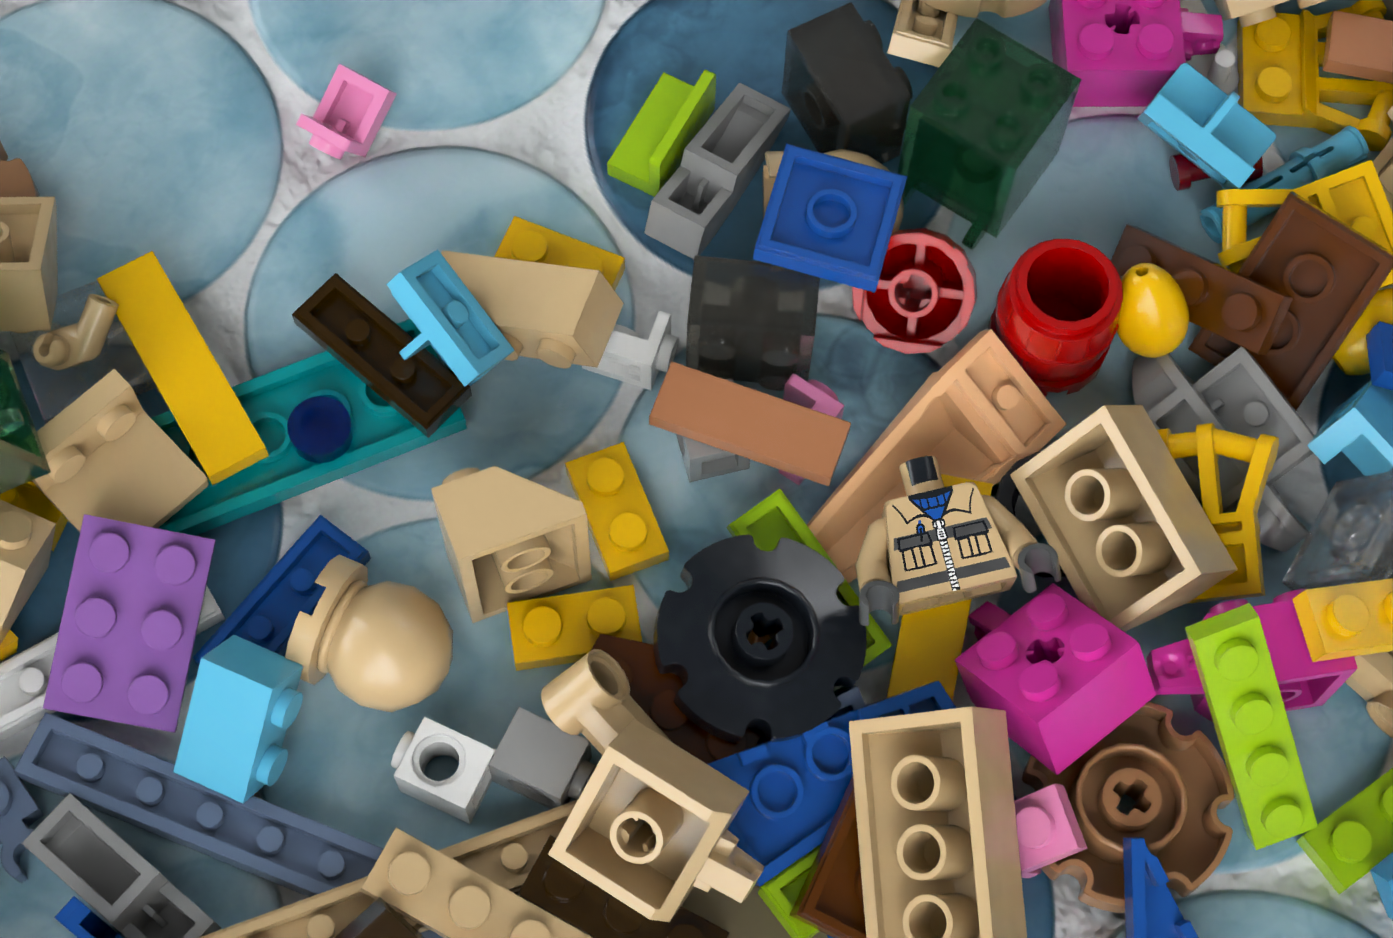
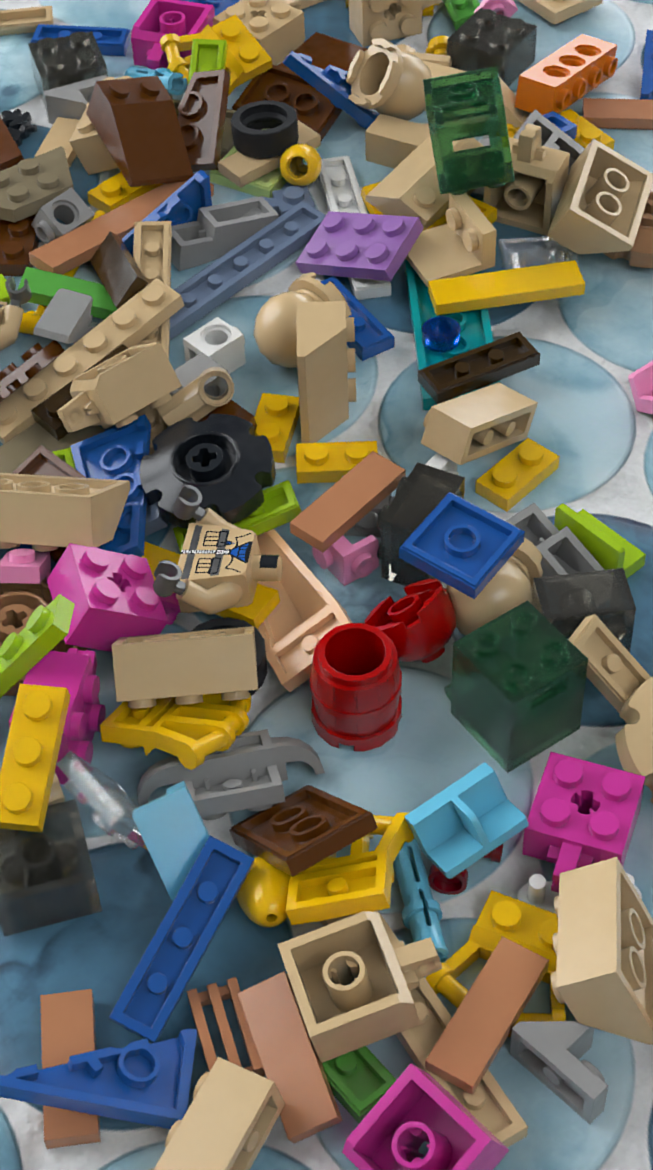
camera: 115 degrees right, 20 degrees down
(78, 341) = (538, 248): tan arm -> none
(239, 719) = (280, 266): medium azure brick -> none
(448, 319) = (473, 367): medium azure panel -> none
(1152, 311) = (330, 729): yellow animal -> none
(1215, 295) = (340, 777): reddish brown plate -> none

